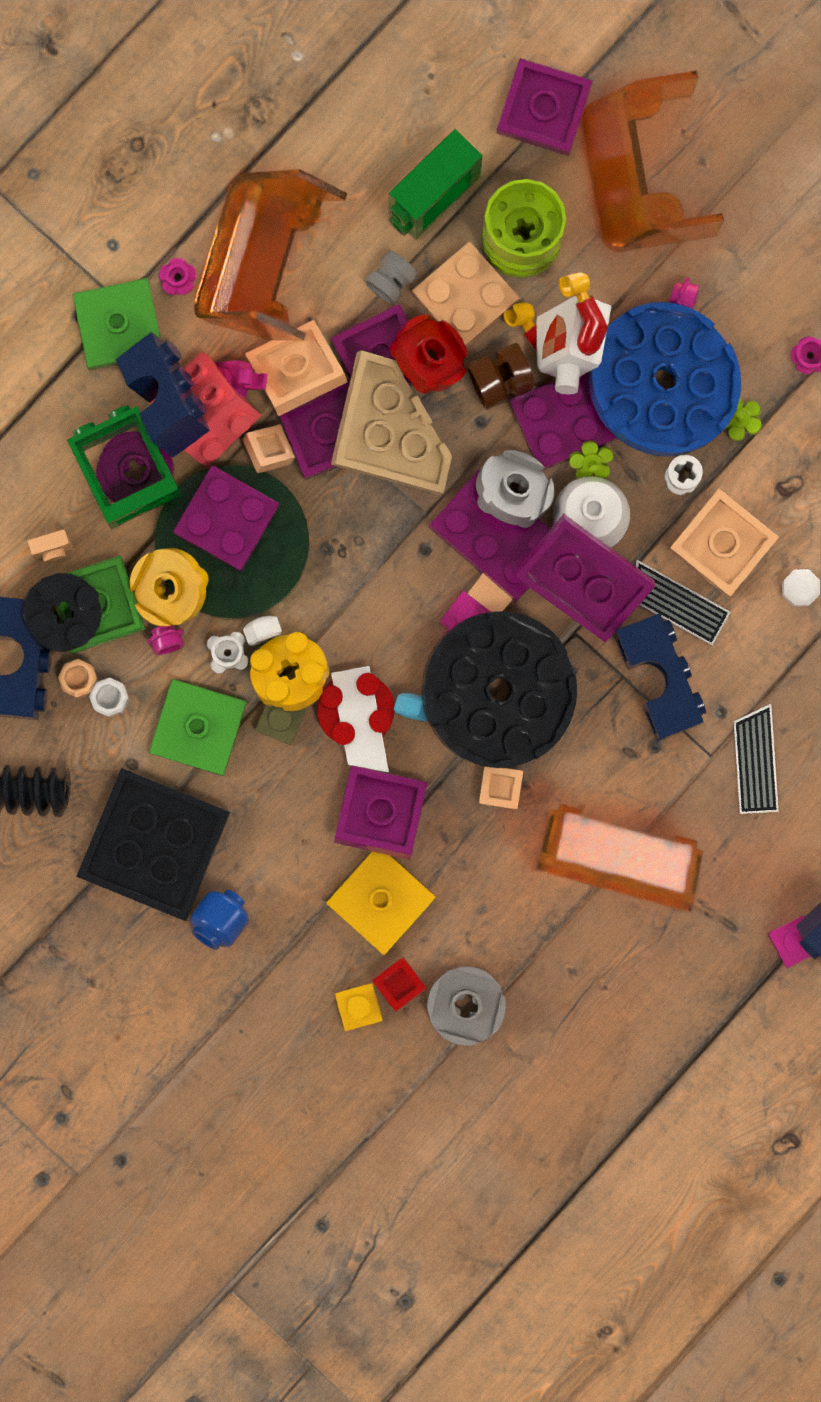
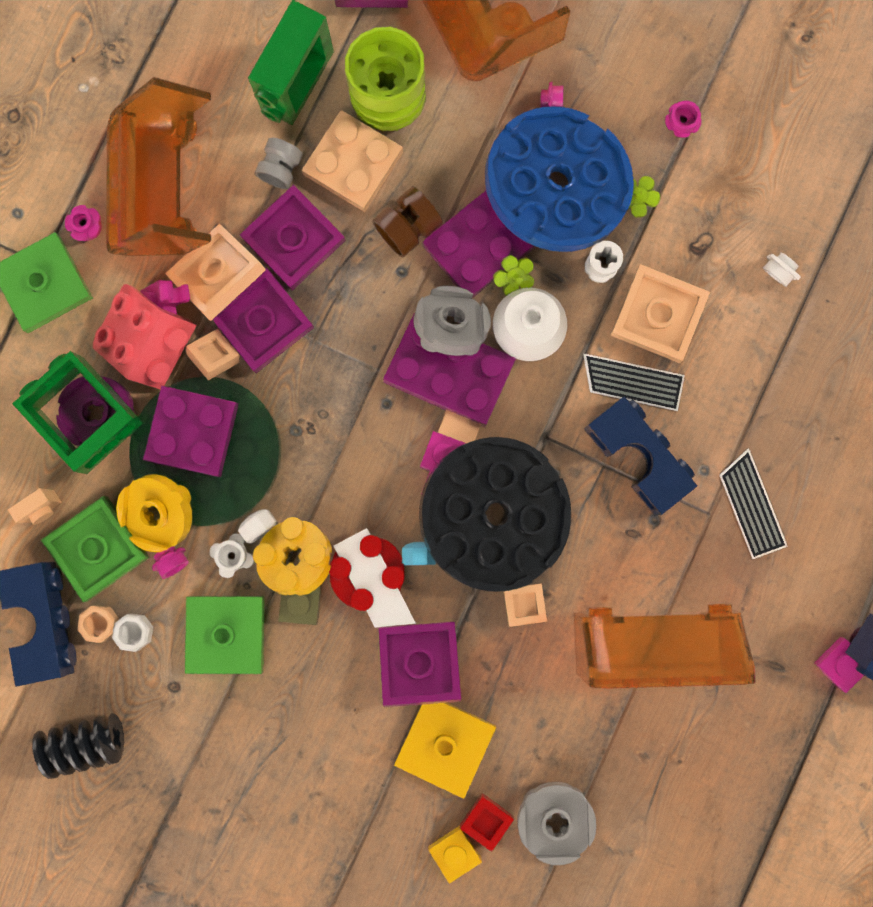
camera: 10 degrees left, 0 degrees up
(49, 593) = (41, 553): black plate -> none
(153, 844) = (214, 760): black plate -> none
(155, 373) = (107, 345): dark blue arch -> none
(219, 919) = (297, 813): blue head -> none
(388, 429) = (317, 302): tan plate -> none
(423, 371) = (334, 237): red plate -> none
(567, 337) = (460, 163): torso -> none
(584, 578) = (543, 384): magenta plate -> none
(800, 588) = (743, 333): white tile -> none

